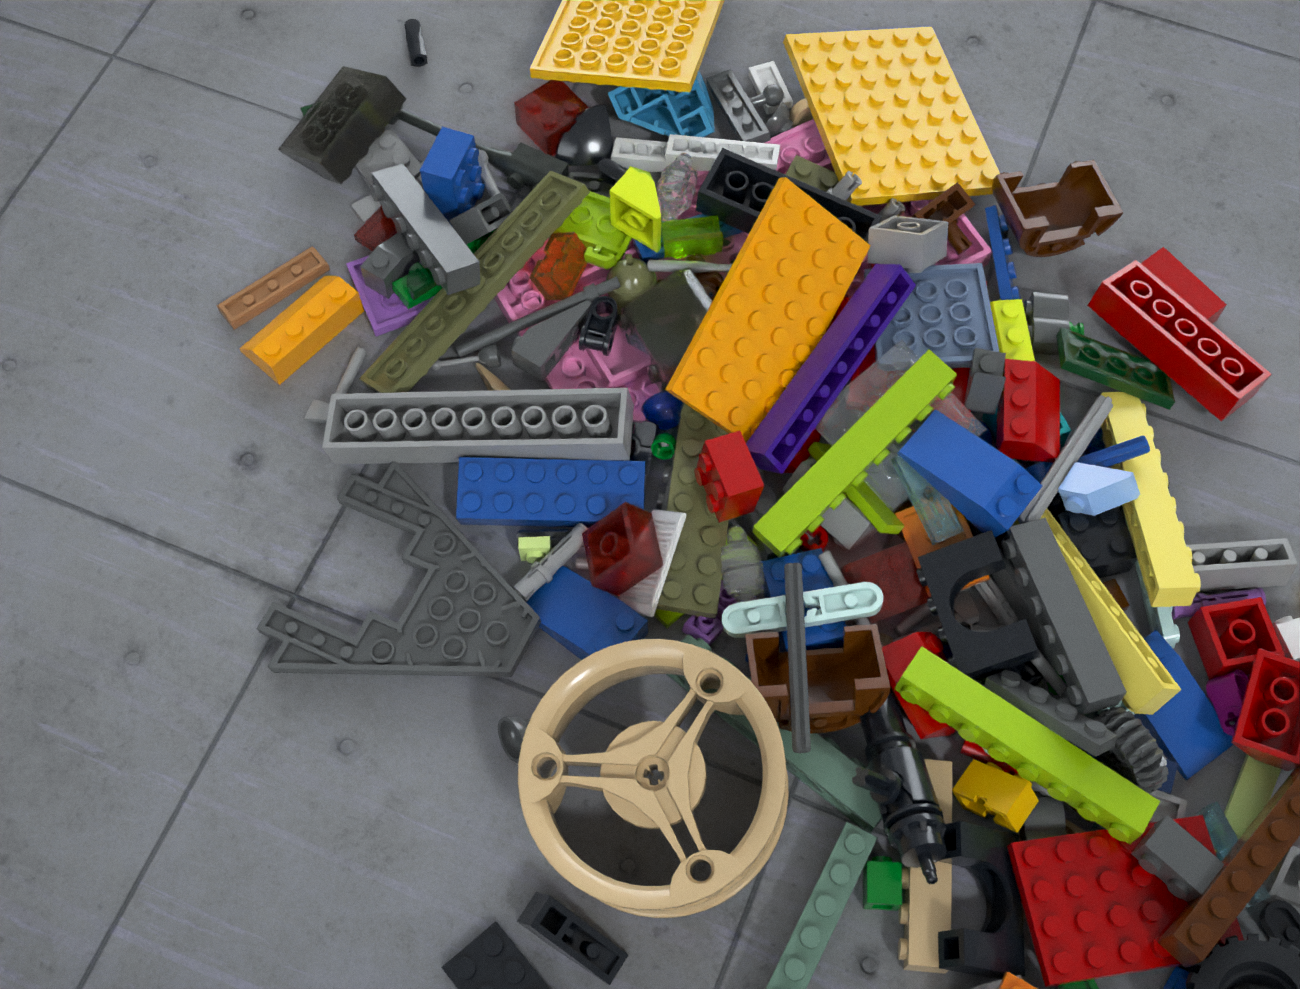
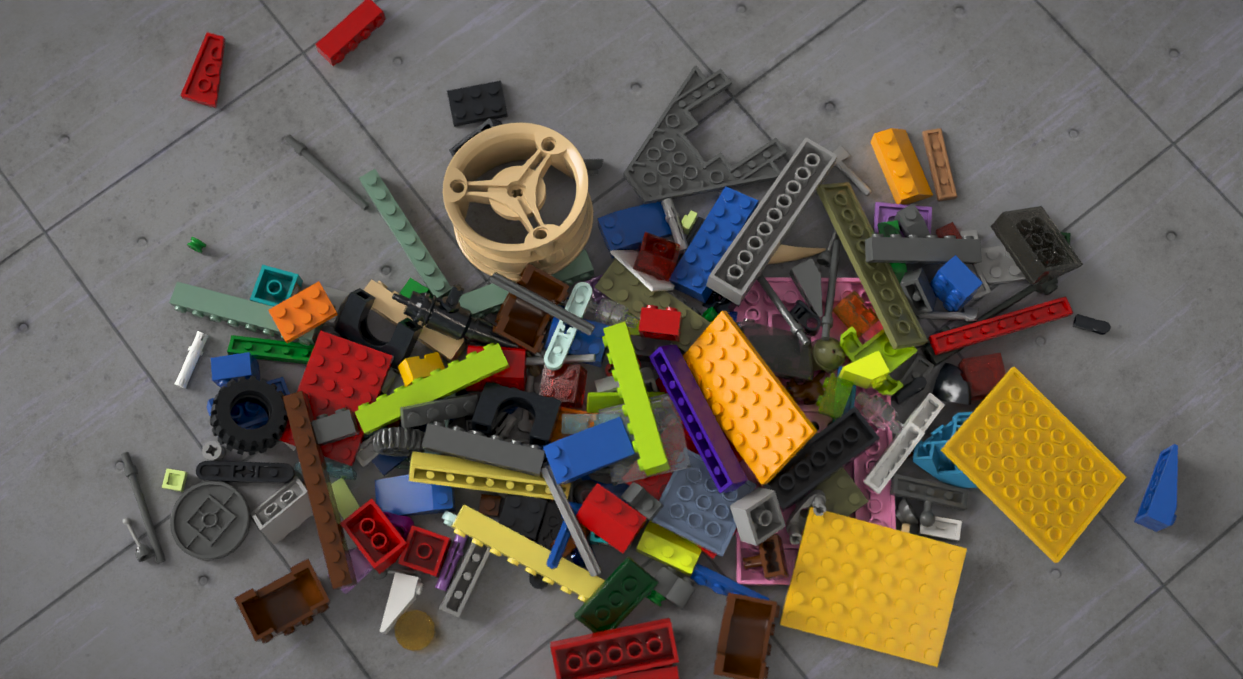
camera: 120 degrees right, 10 degrees up
(477, 122) = (1000, 325): none -> red tile
(627, 317) = (796, 328): none -> dark grey bar
(695, 266) = (802, 399): light grey piece -> none
(1097, 489) = (544, 520): light blue slope -> none

